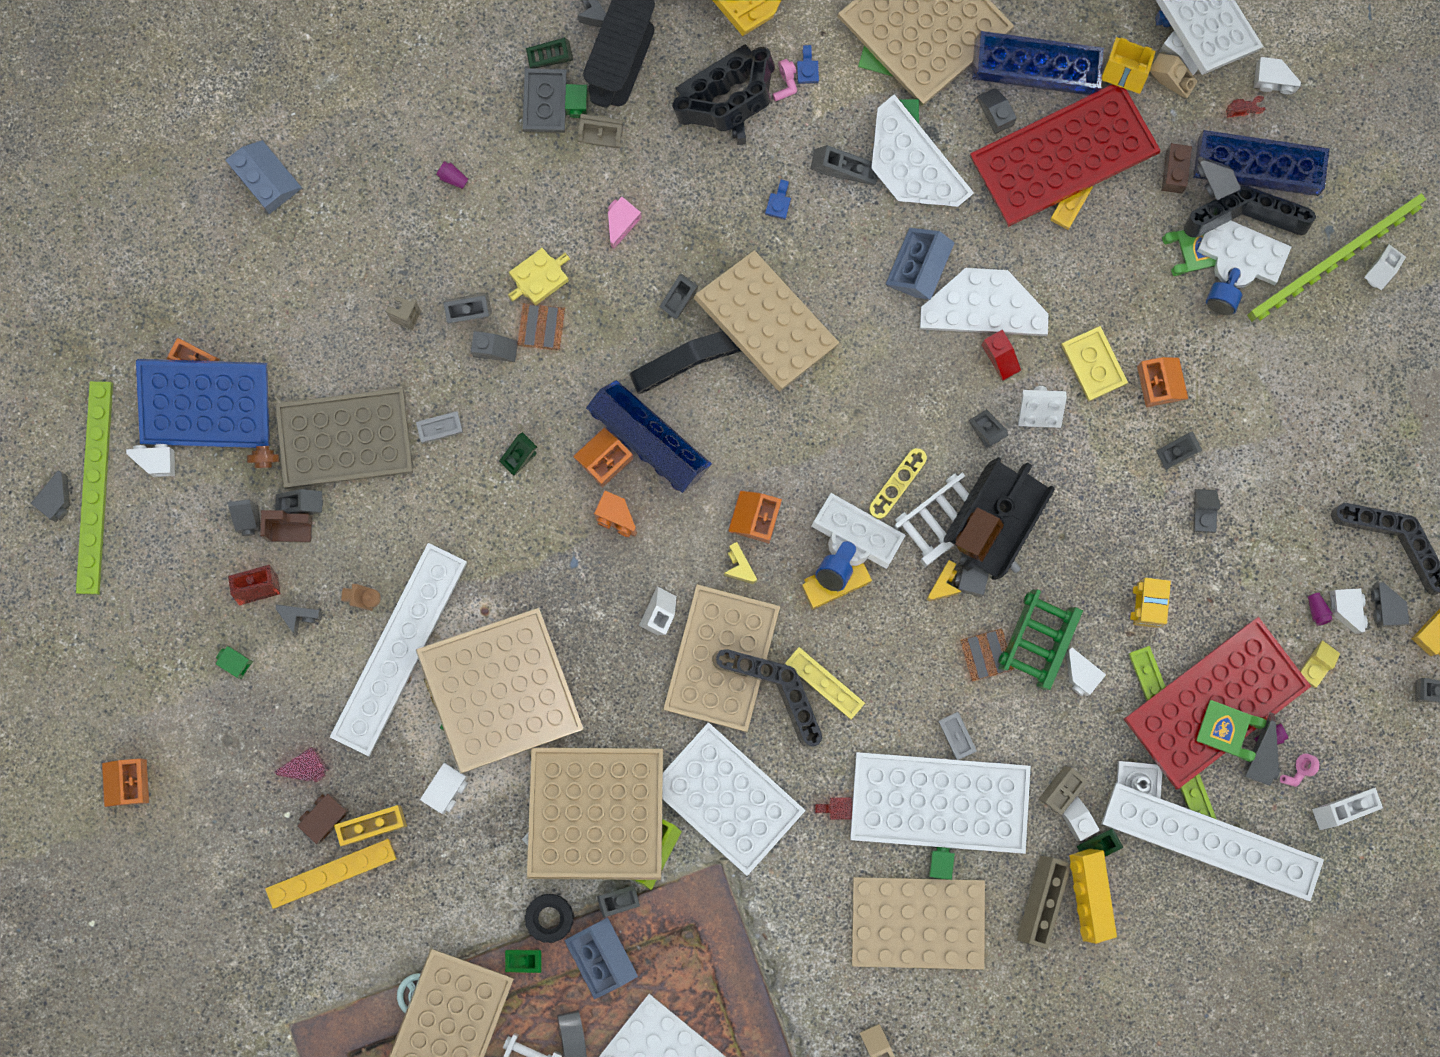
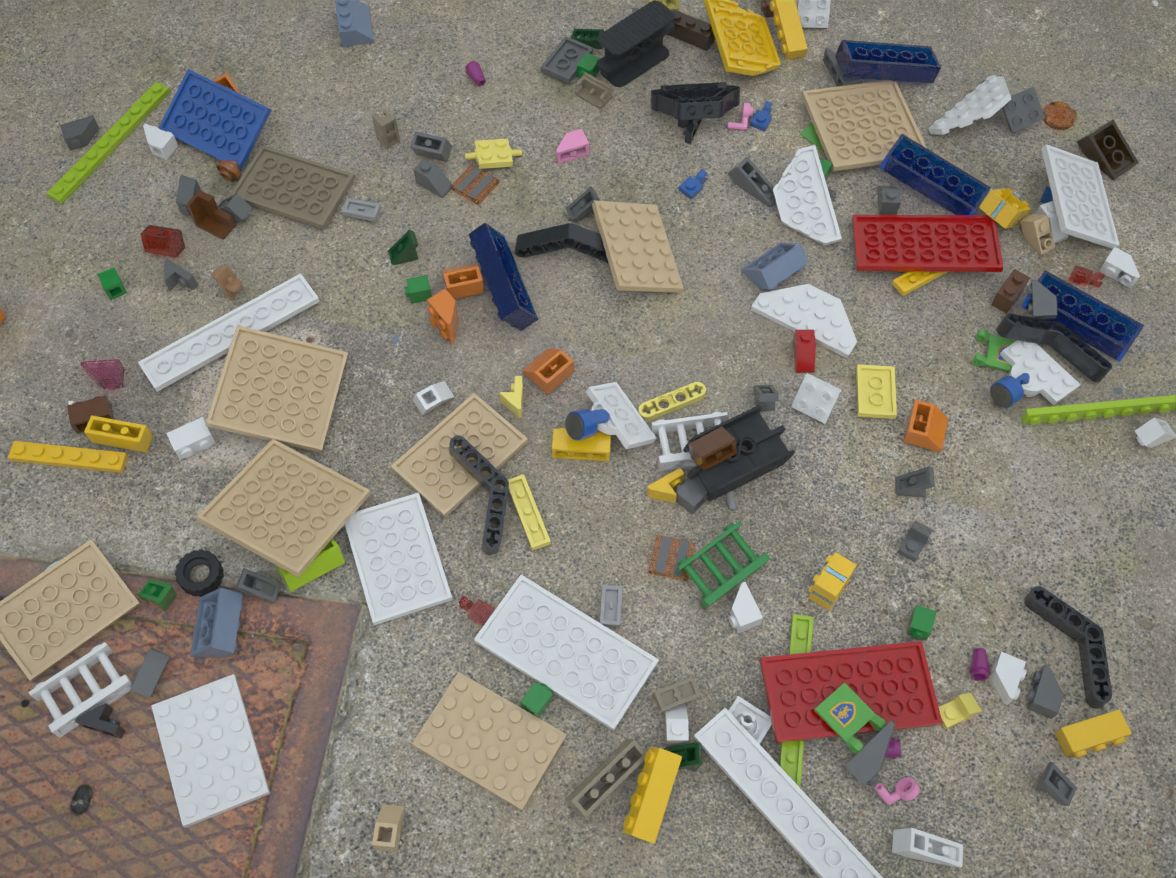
camera: 30 degrees right, 20 degrees down
(564, 494) = (418, 289): none -> green brick
(1249, 597) = (921, 623): none -> green brick

